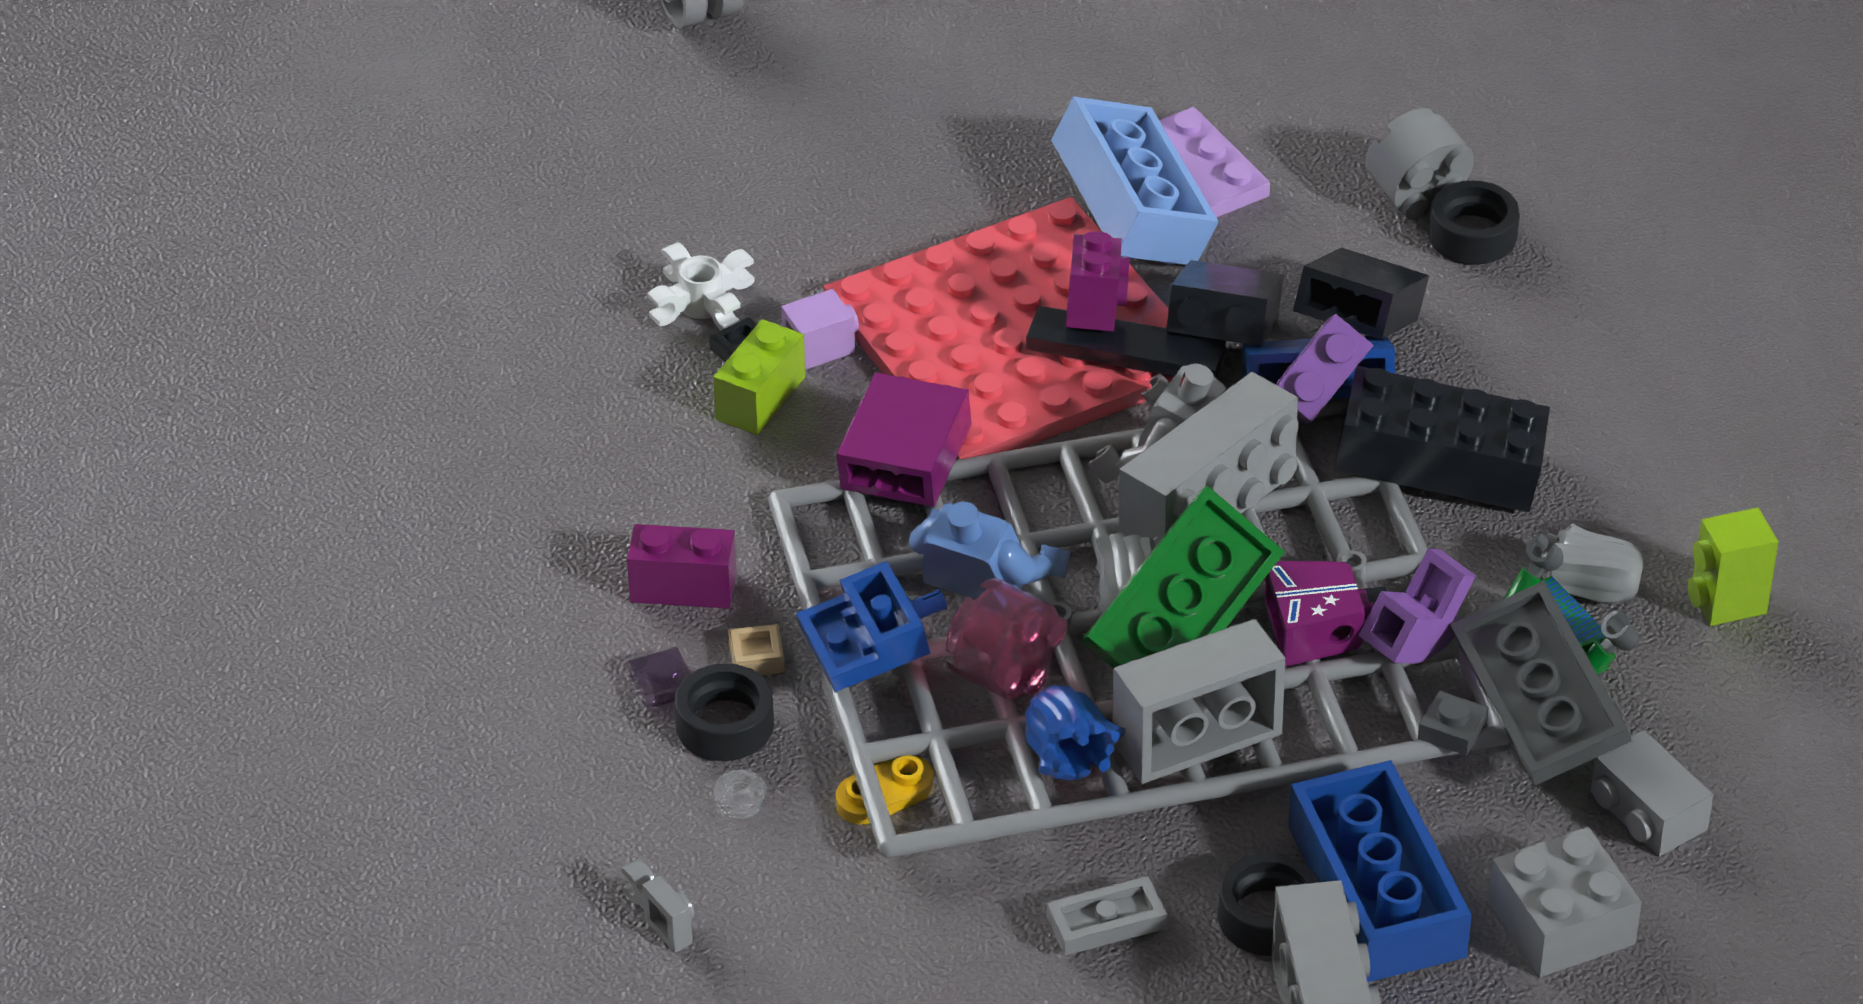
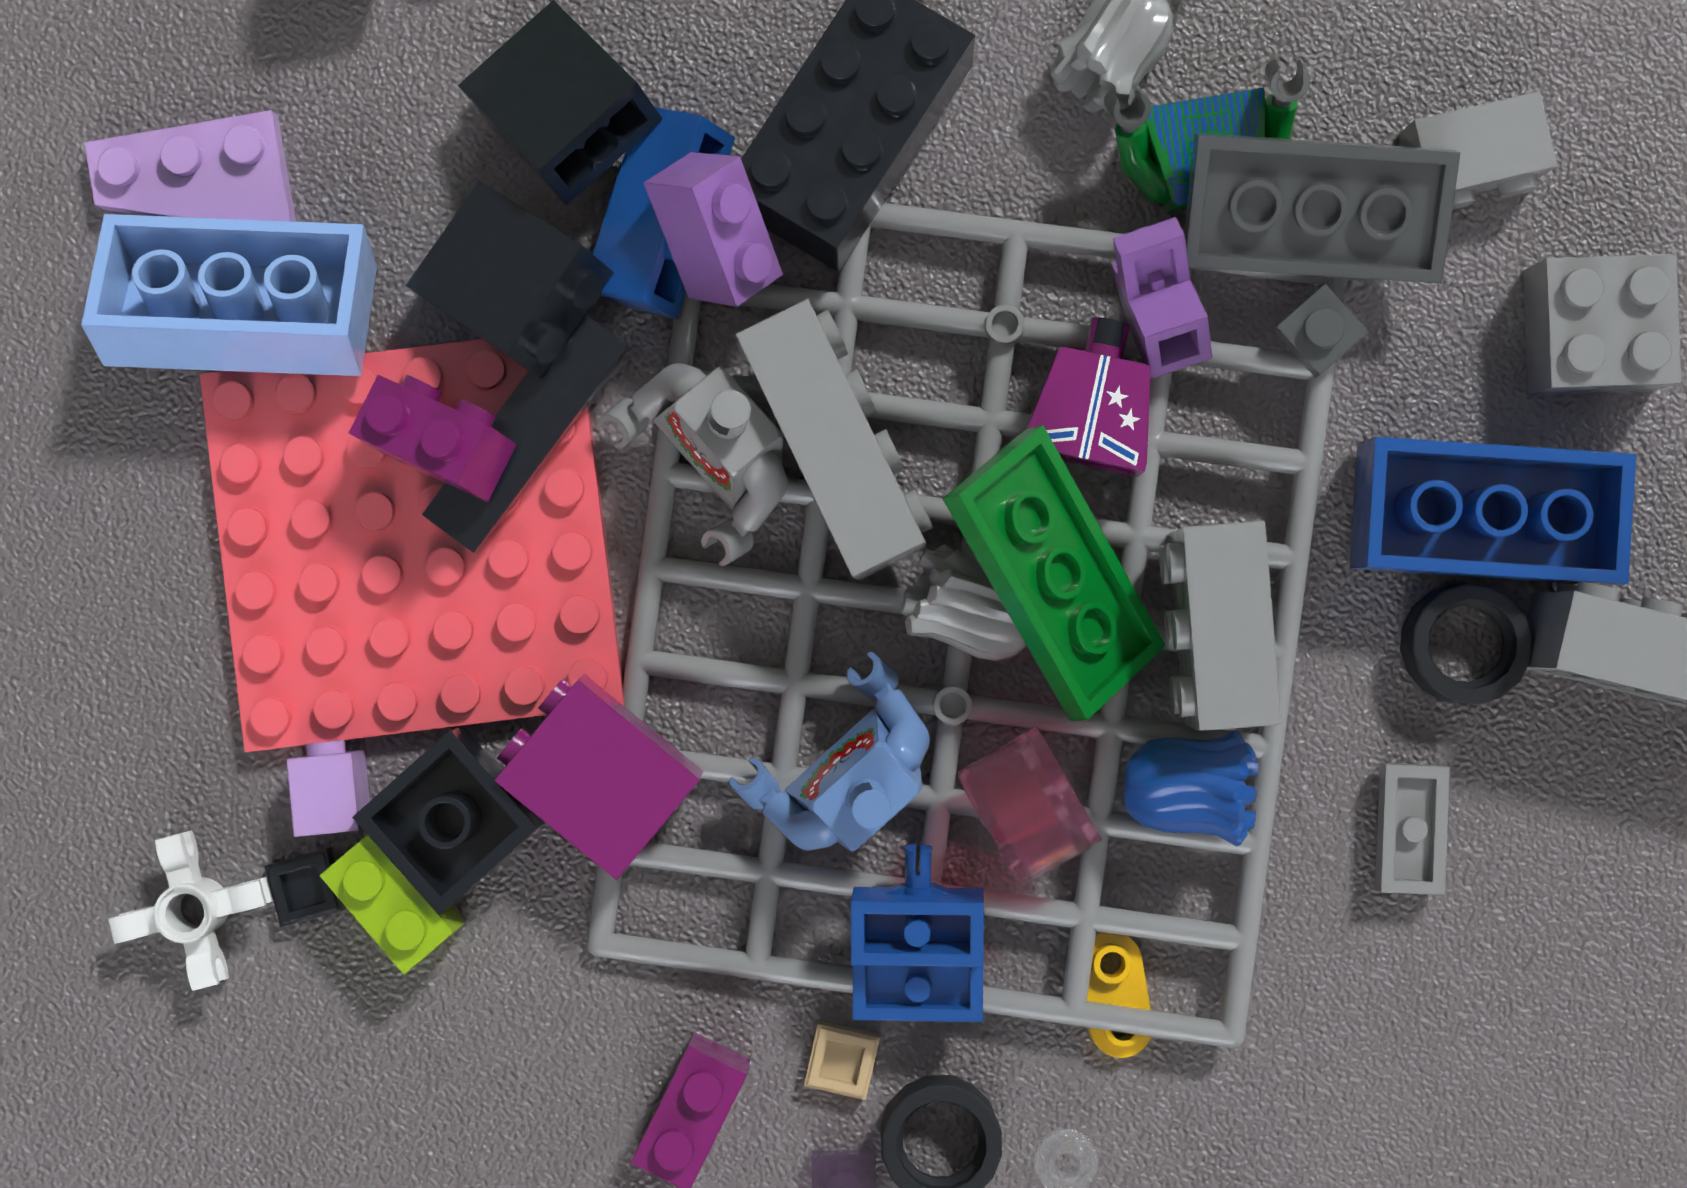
camera: 75 degrees left, 45 degrees up
(825, 378) = (447, 820): none -> black brick

